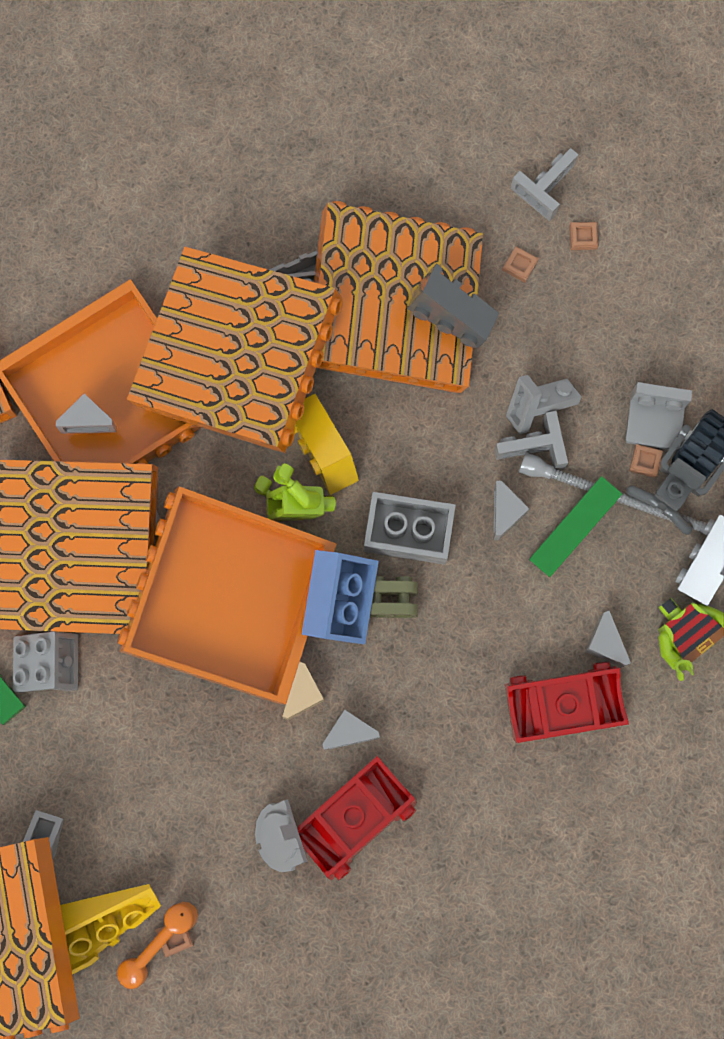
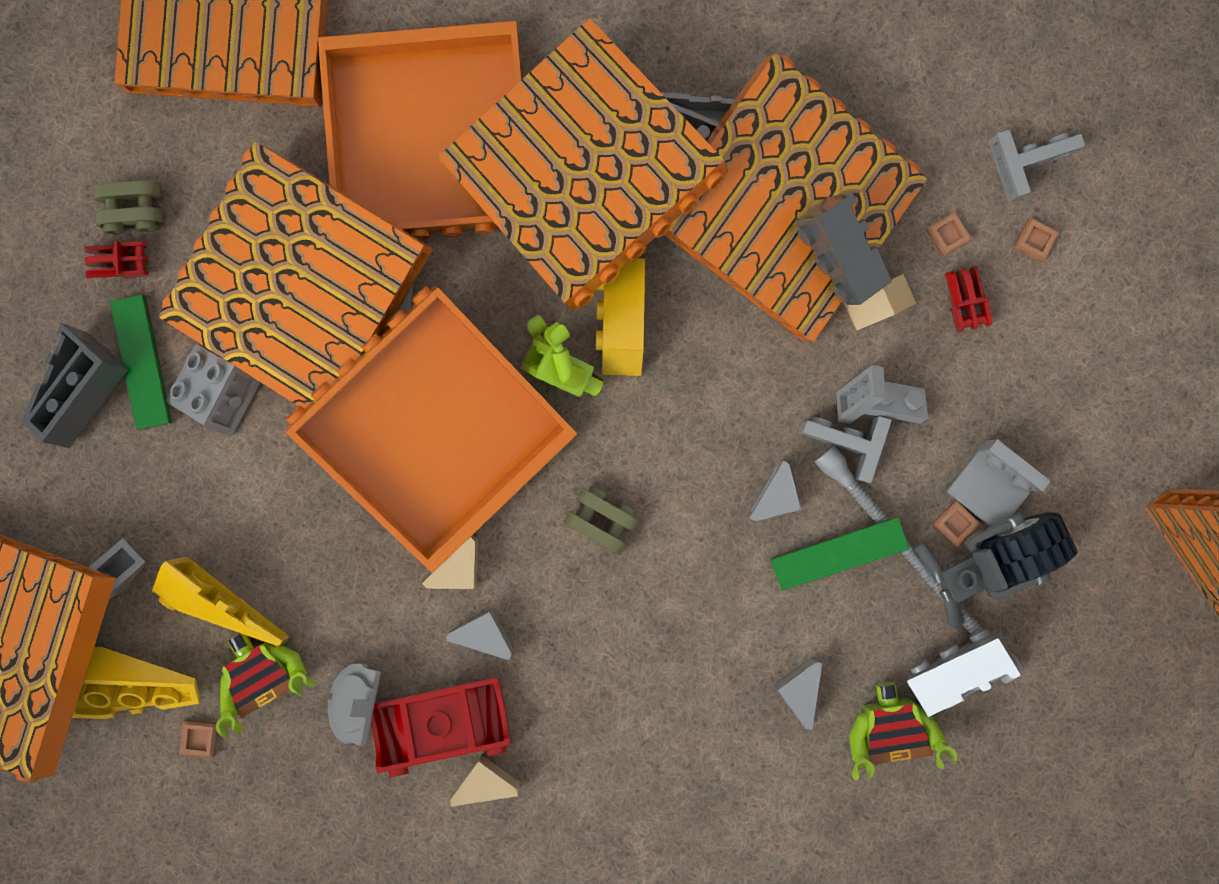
camera: 30 degrees right, 10 degrees up
(85, 417) = (384, 150): light grey slope -> none
(110, 822) = (195, 592): none -> yellow wedge
(133, 971) = (140, 750): orange piece -> none
(196, 861) = (257, 679): none -> torso
(340, 597) = (547, 495): medium blue brick -> none
(409, 528) = (663, 459): light grey brick -> none
(412, 844) = (485, 783): none -> tan slope
(501, 336) = (883, 304): none -> tan slope
(557, 296) = (967, 292): none -> red arm
(566, 703) = (721, 732): red piece -> none

